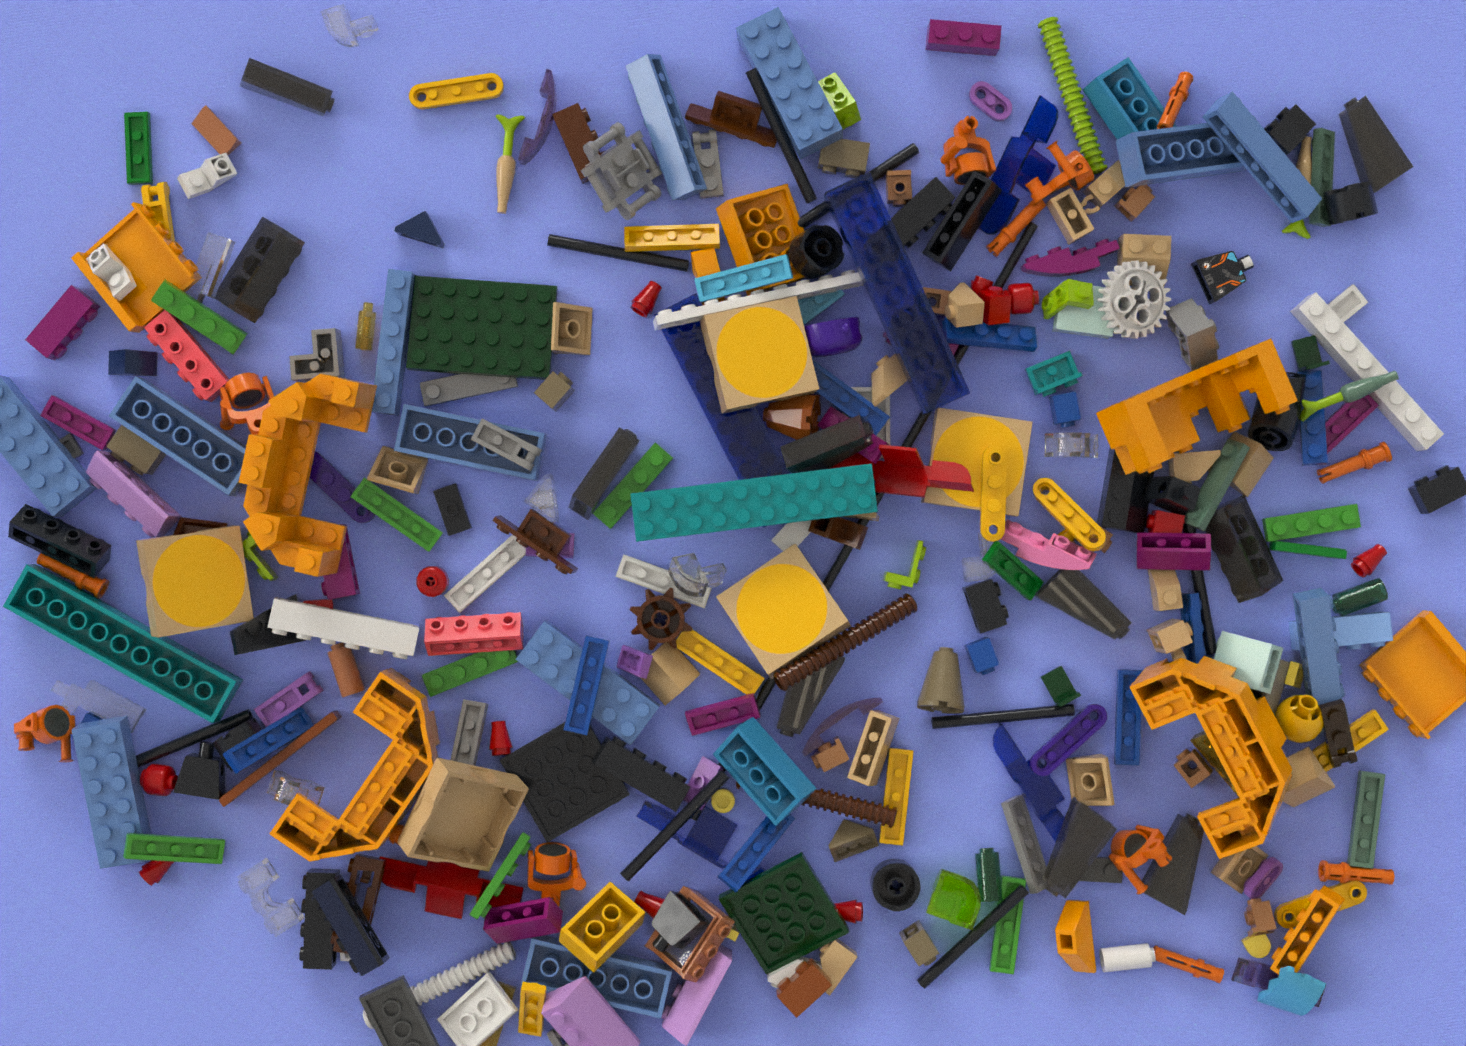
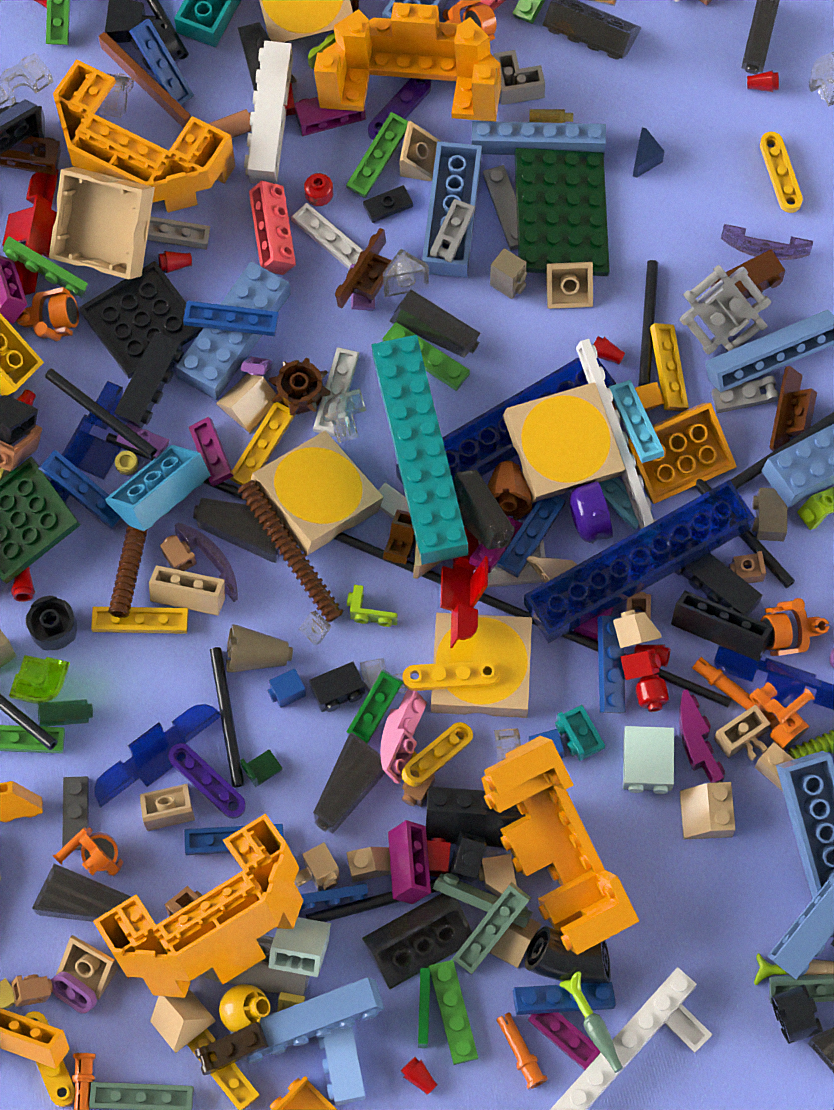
camera: 90 degrees right, 20 degrees down
(288, 699) = (201, 84): medium lavender plate -> none
(345, 93) = (764, 81): none -> red cone
(467, 670) = (236, 227): bright green plate -> none
(506, 164) = (717, 219): tan piece -> none
(816, 251) = (660, 485): black brick -> none
(851, 840) = (92, 582): dark tan slope -> none
(921, 622) = (315, 627): none -> clear plate
(1025, 842) = (95, 749): light grey plate -> none
(1068, 293) = (662, 734): lime bracket -> none
(1076, 847) = (100, 790): clear smoke slope -> none
(1134, 299) = (673, 776): white gear -> none
(1135, 201) = (767, 798): medium nougat brick -> none
(1194, 333) = (640, 863): light grey brick -> none
(1221, 274) = (703, 892): black torso -> none
(1246, 478) = (491, 928): none -> sand green plate
(1307, 353) = (631, 990): dark green bracket -> none
(1359, 597) = (378, 1067): clear green brick -> none

